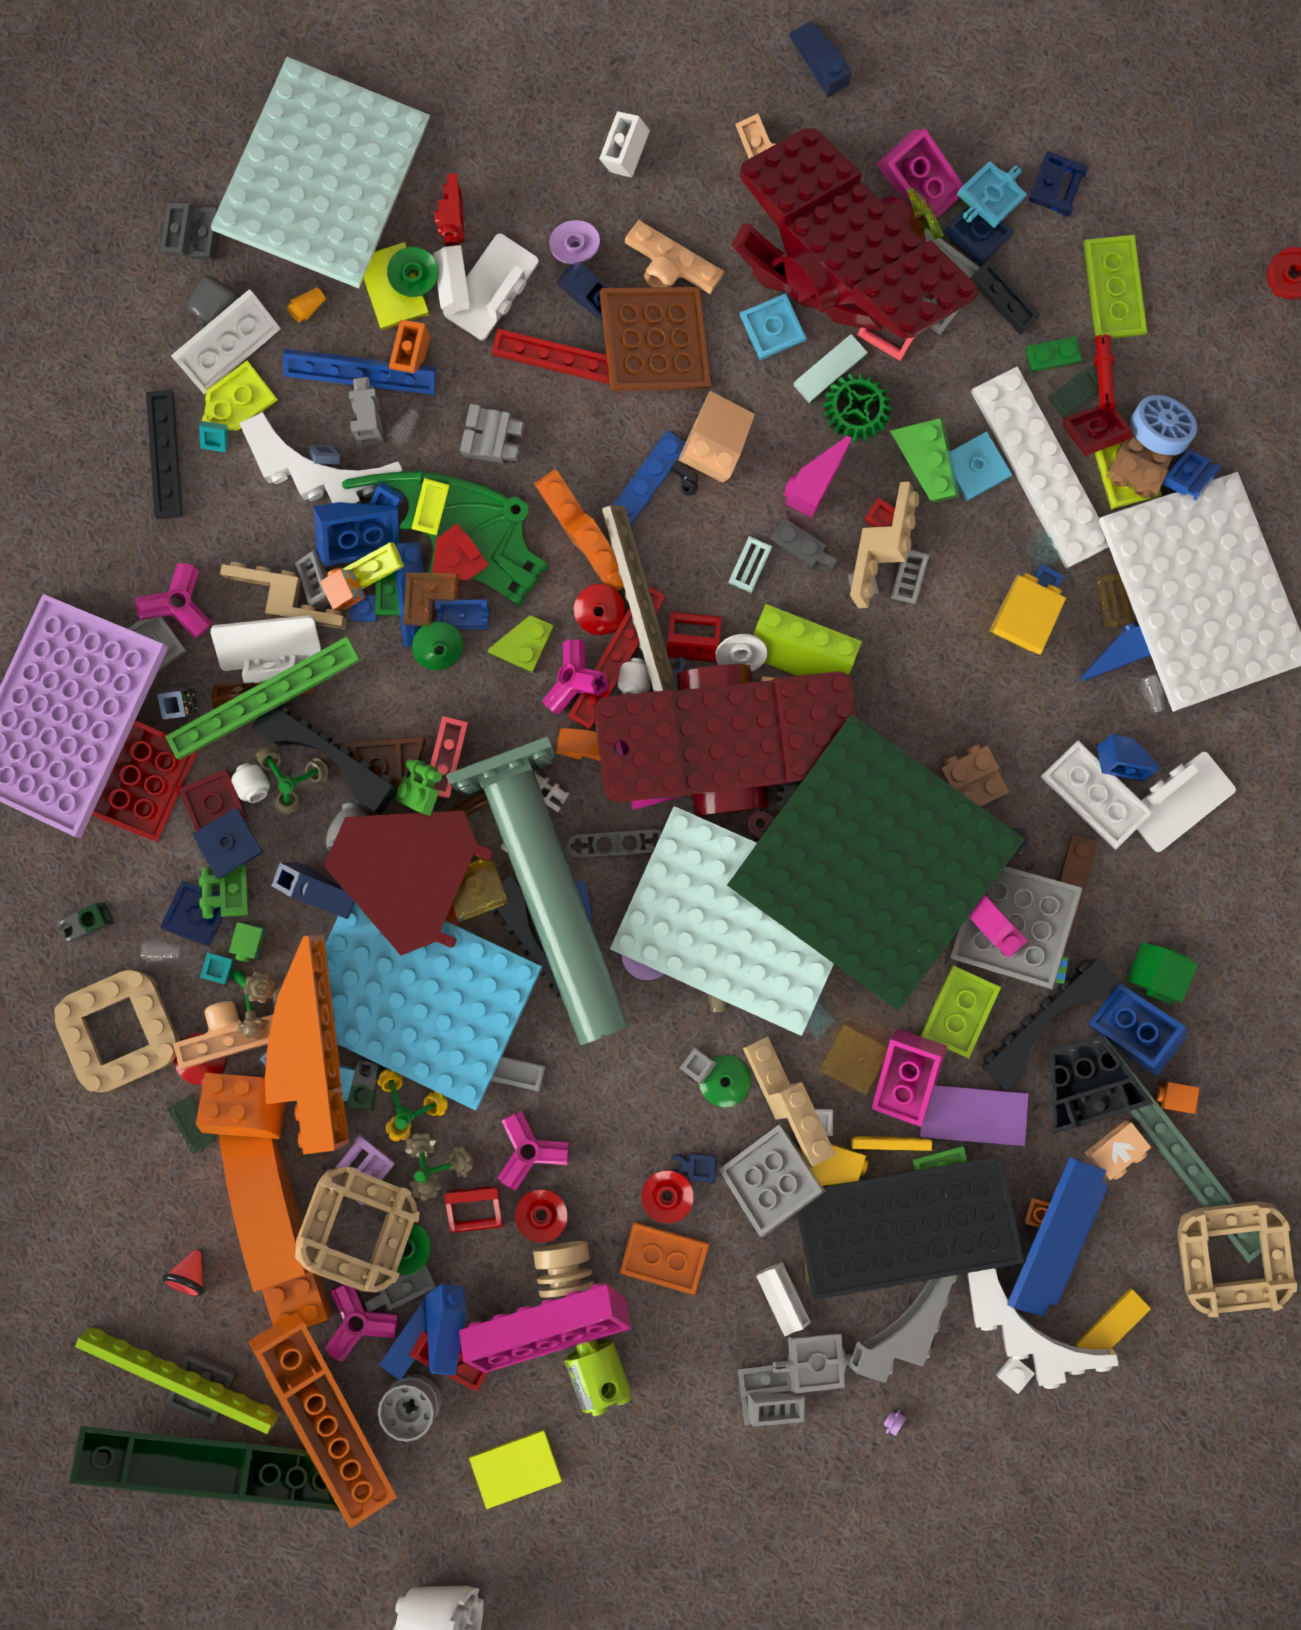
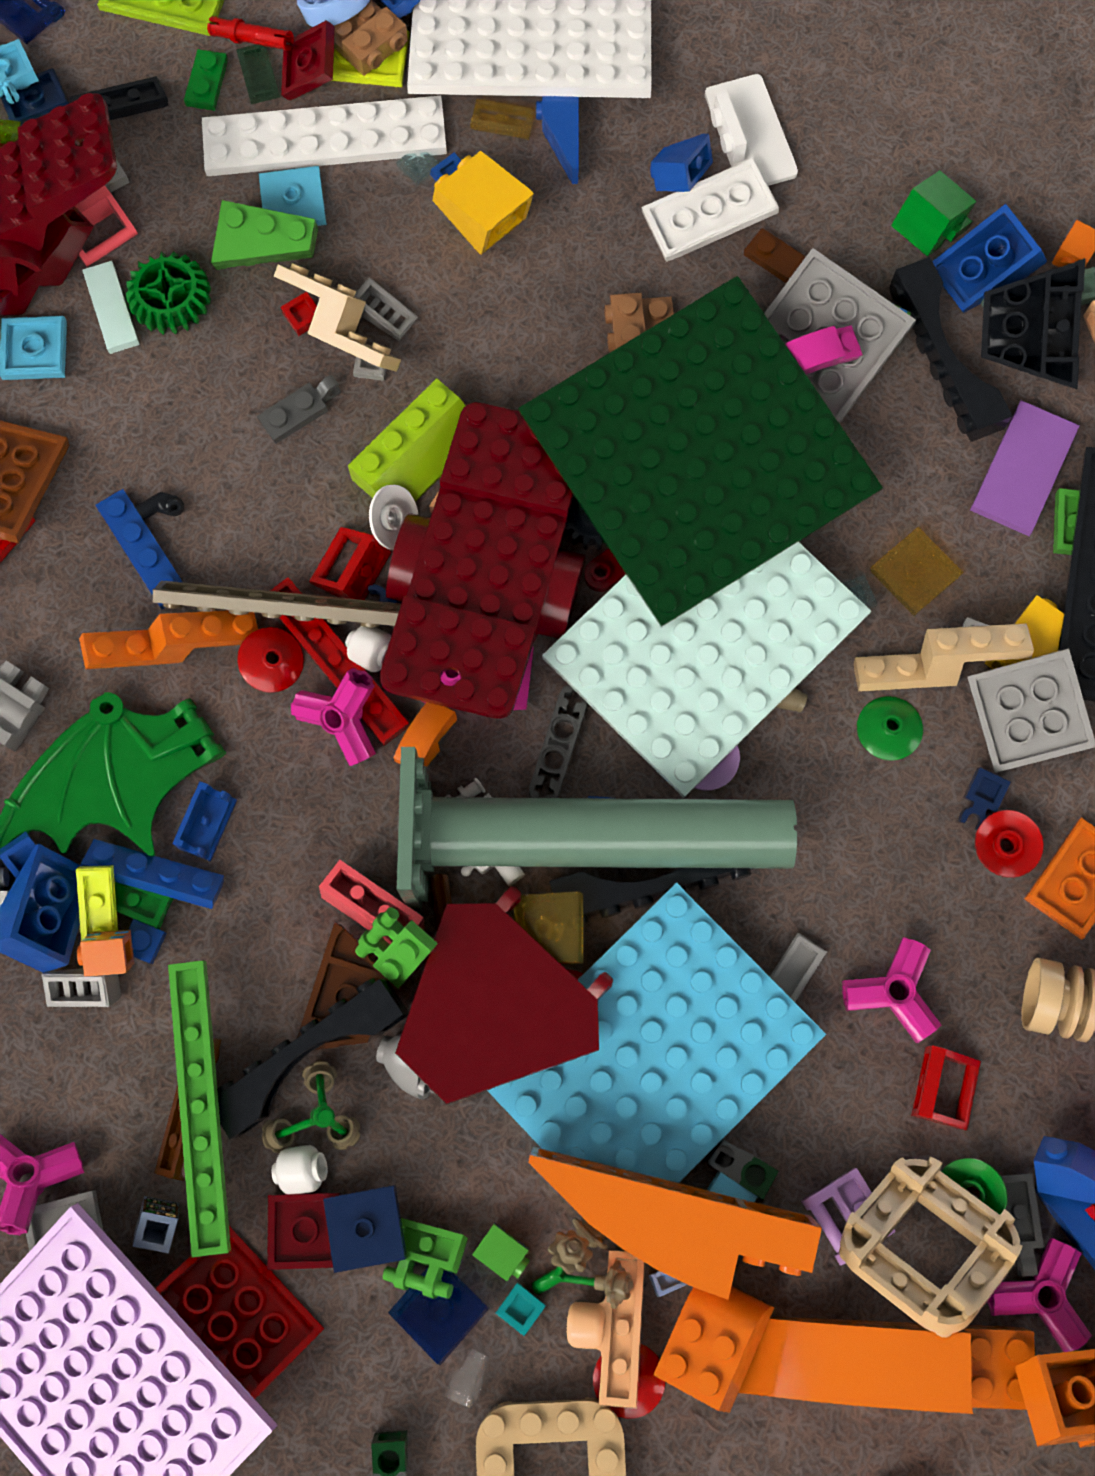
camera: 70 degrees left, 10 degrees down
(185, 1115) = (707, 1427): clear green tile -> none
(265, 646) = (133, 1082): white bracket -> none
(283, 594) = (80, 1035): tan bracket -> none
(312, 888) = (469, 1136): dark blue slope -> none
(400, 1124) = (811, 1144): yellow plant -> none
(422, 590) = (152, 849): clear orange plate -> none
(425, 1183) = (895, 1137): dark tan plant -> none
(430, 506) = (55, 804): neon yellow tile -> none
(438, 634) = (215, 869): green dish -> none
(457, 555) = (130, 796): red plate -> none
(523, 643) = (272, 764): lime wing -> none
(541, 1229) = (1000, 1003): red dish -> none
(698, 1065) = (861, 750): light grey tile -> none
(717, 437) = (132, 453): light nougat slope -> none
(741, 584) = (311, 492): light aqua tile -> none
(813, 480) = (235, 367): dark pink slope -> none
(890, 1143) = (1028, 566): yellow tile -> none
(909, 1077) = (960, 516): dark pink slope -> none
(960, 1011) = (901, 437): lime plate -> none
(1153, 692) = (619, 114): clear cone -> none

